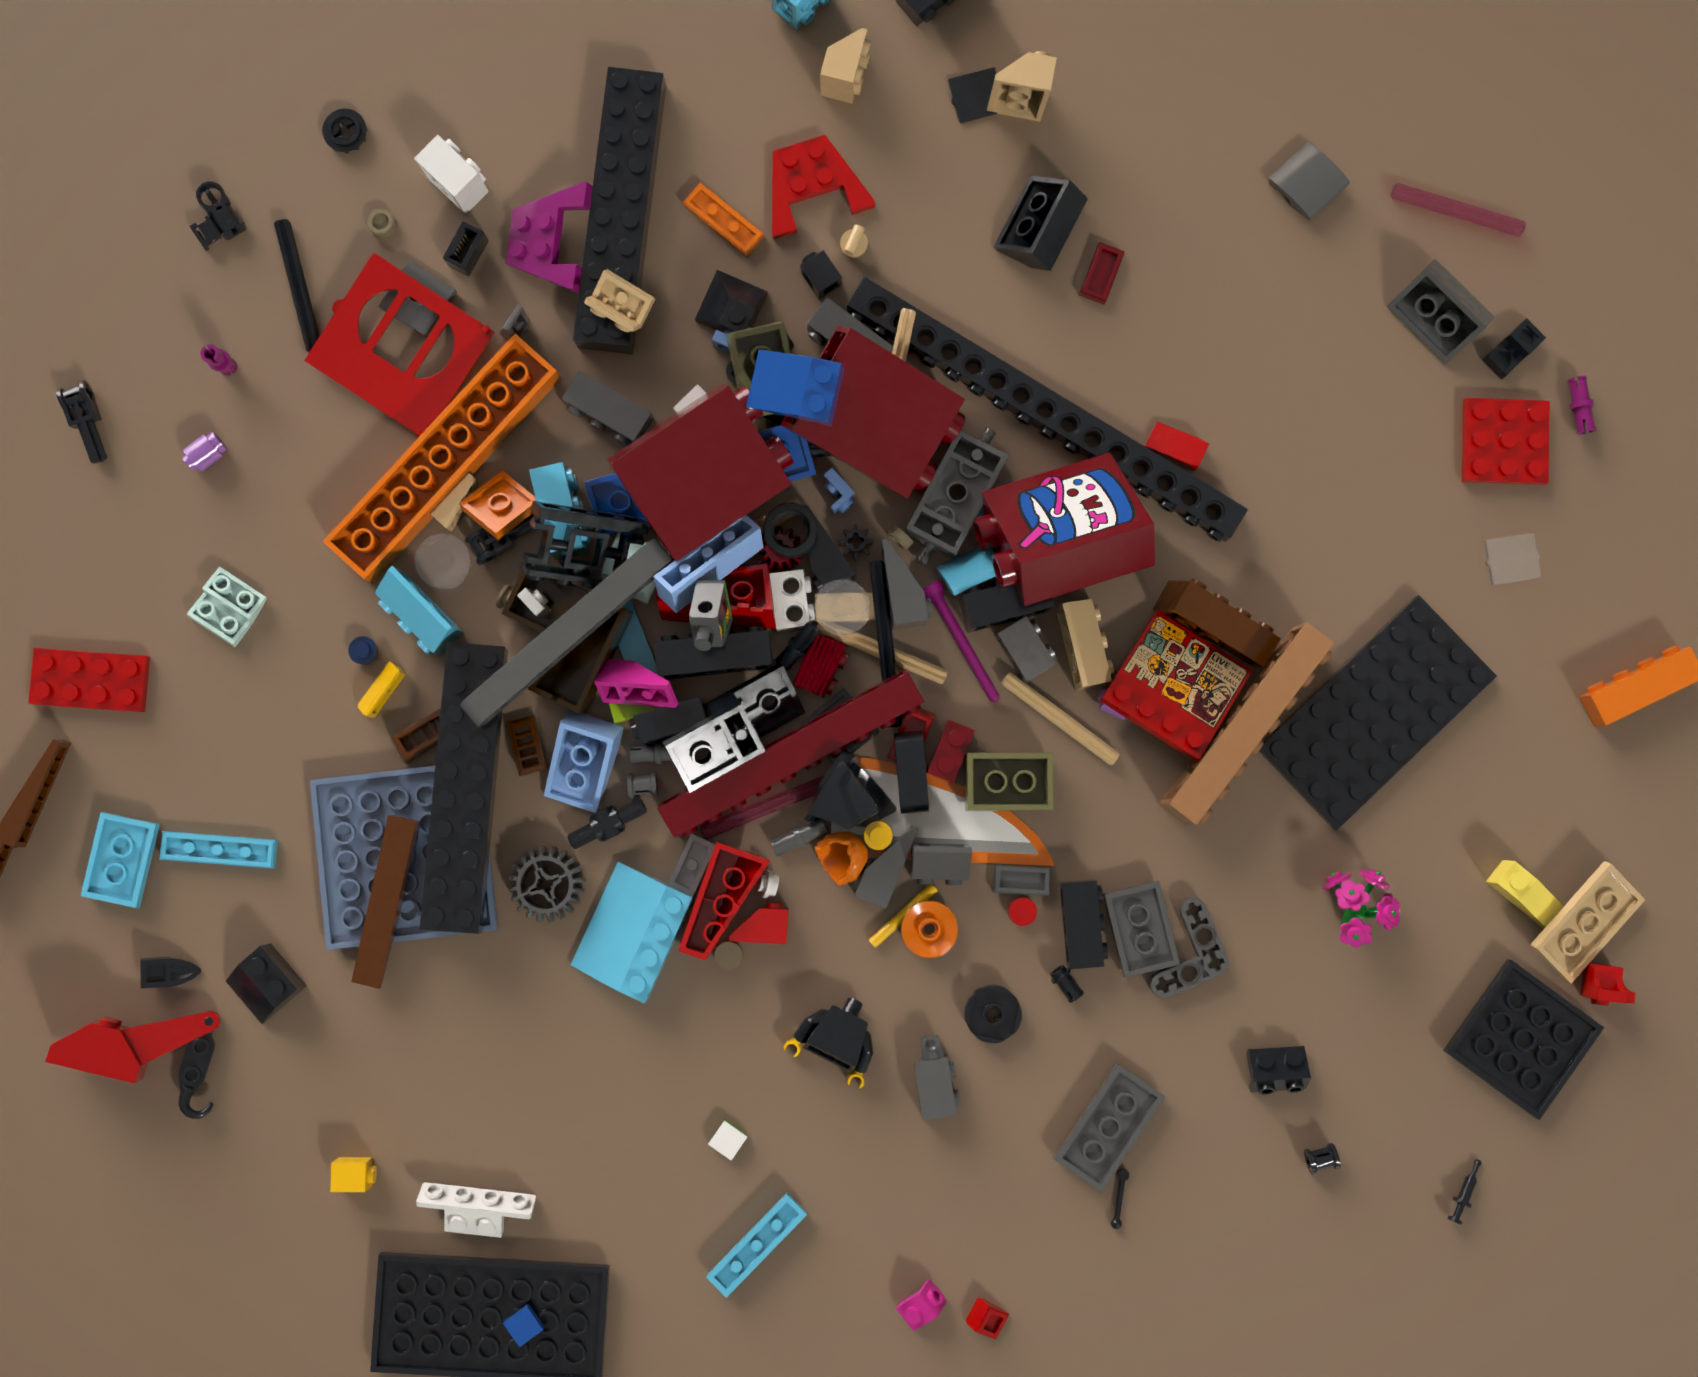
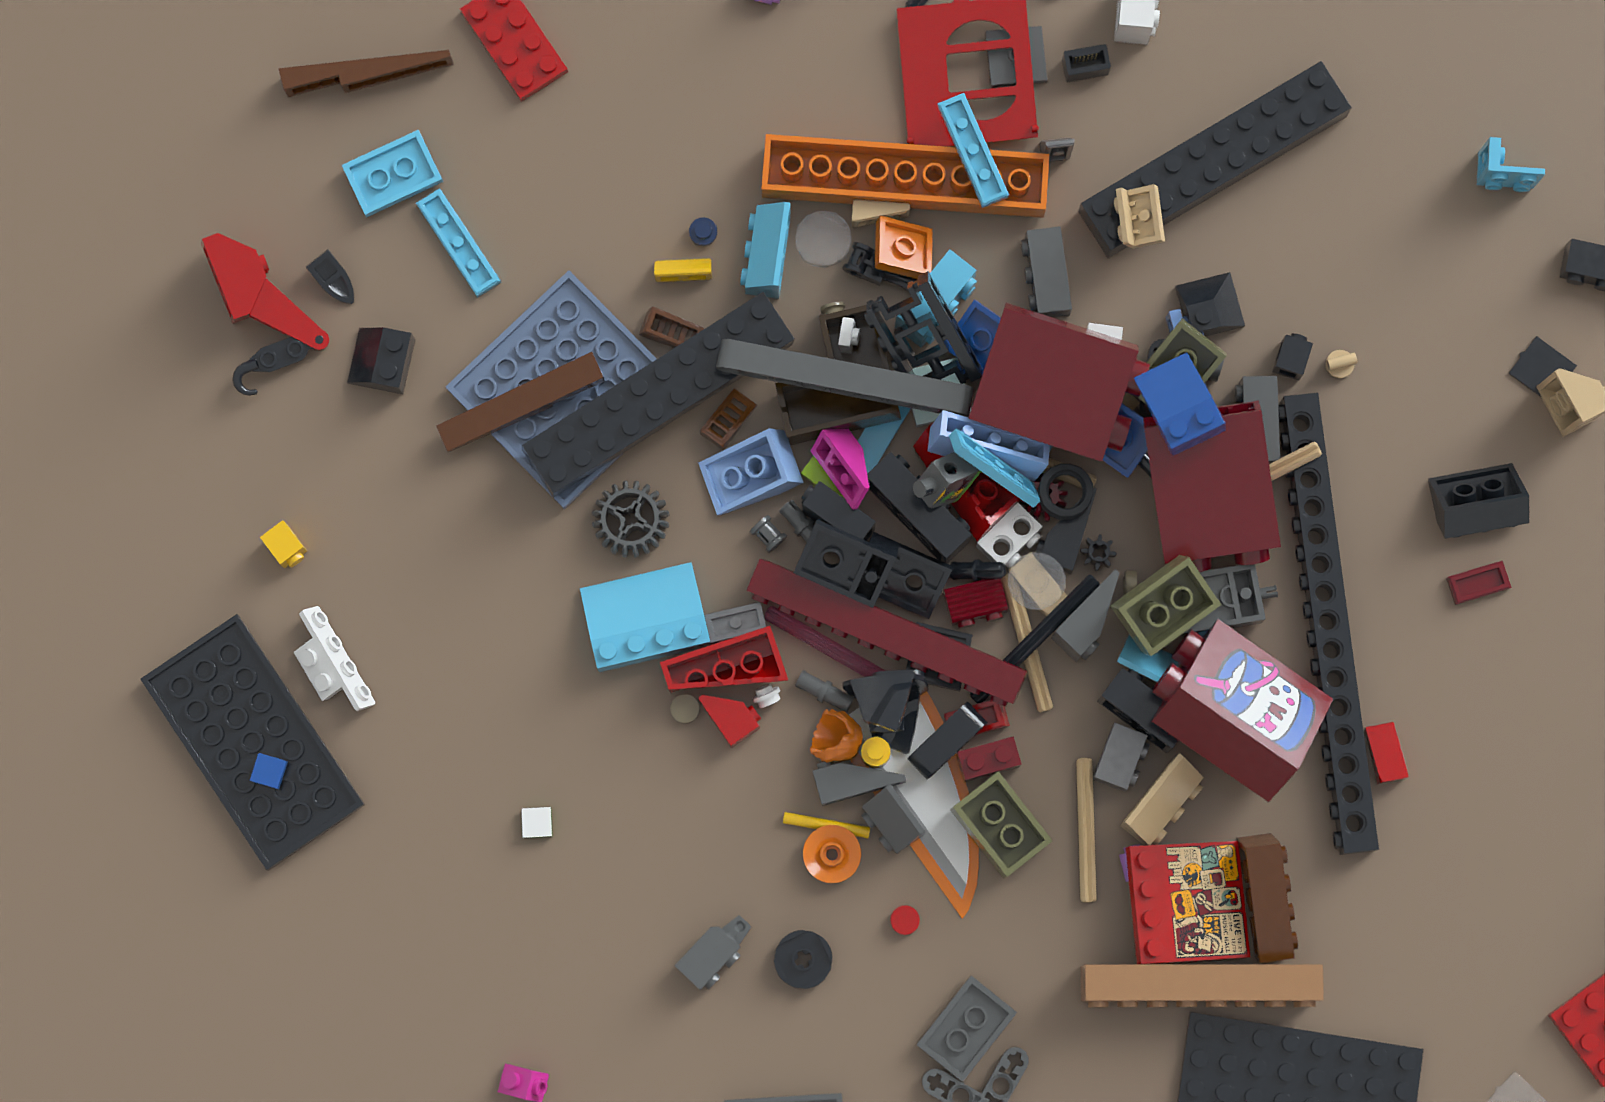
camera: 60 degrees right, 5 degrees down
(227, 607) = (654, 100): light aqua slope -> none
(464, 389) = (973, 150): none -> medium azure tile
(537, 236) = (1142, 110): magenta wing -> none
(607, 823) = (715, 529): black axle -> none
(723, 219) = (1274, 245): orange tile -> none
(730, 571) = (994, 467): none -> medium azure tile
(756, 1244) = (471, 910): medium azure plate -> none
(807, 172) = (1367, 282): red wing -> none
(838, 486) = (1131, 503): medium blue bracket -> none
(838, 1038) = (687, 846): black torso -> none
(845, 66) = (1475, 244): tan slope -> none
(935, 593) = (1107, 649): magenta piece -> none
(941, 523) = (1165, 605): none -> olive brick
(1021, 880) = (930, 900): dark grey tile -> none
(1066, 983) = (874, 1001): black pin -> none
(1083, 924) = (933, 976): black brick -> none

